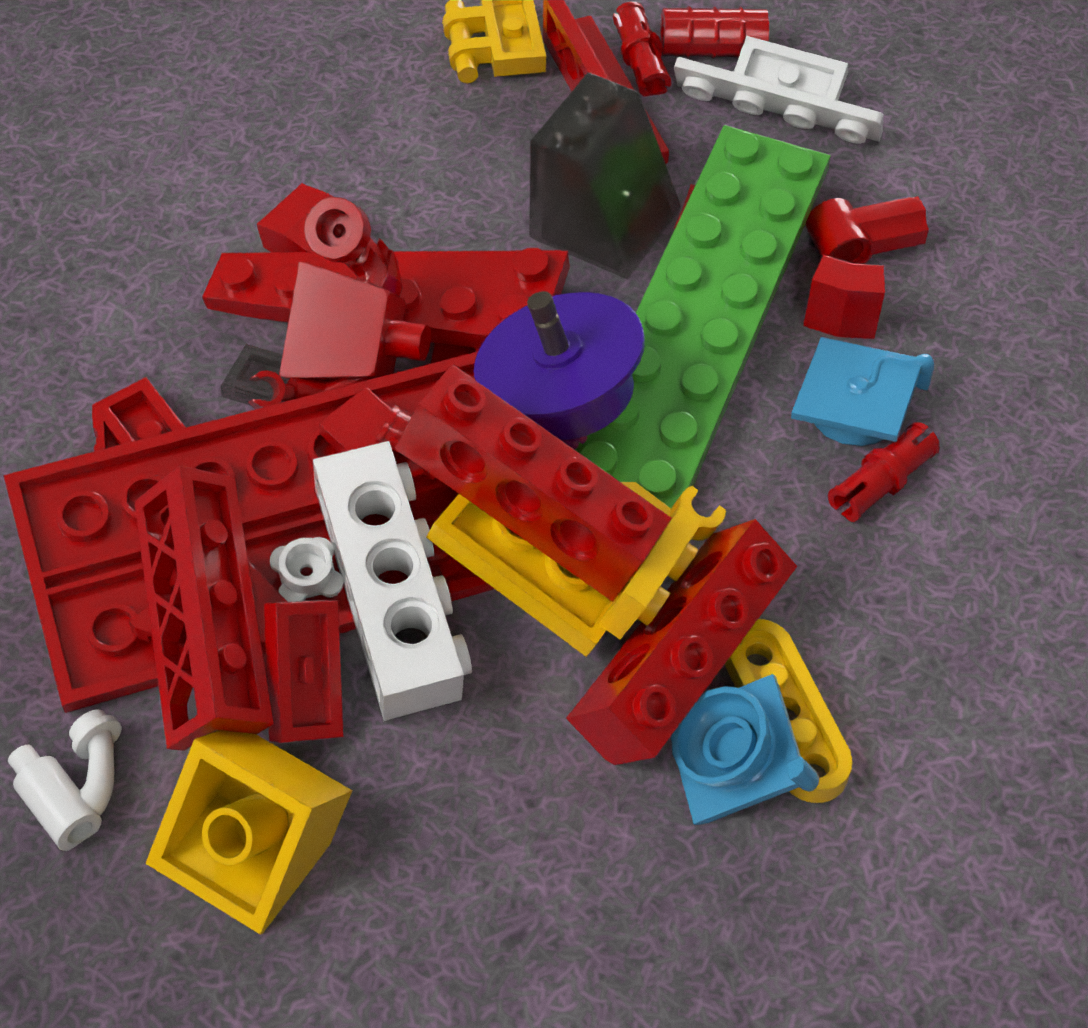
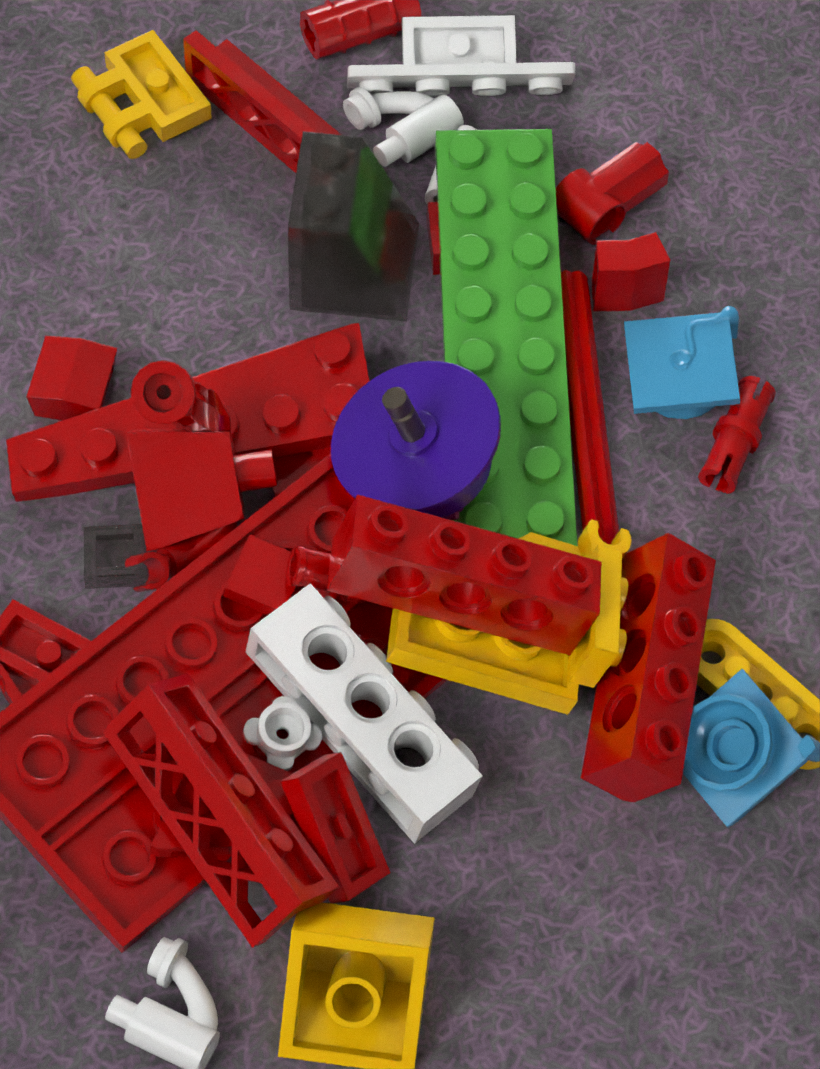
camera: 25 degrees left, 5 degrees up
(641, 49) = (297, 61): red pin -> none
(704, 131) = (413, 133): none -> white plant
(750, 401) = (587, 409): none -> red axle

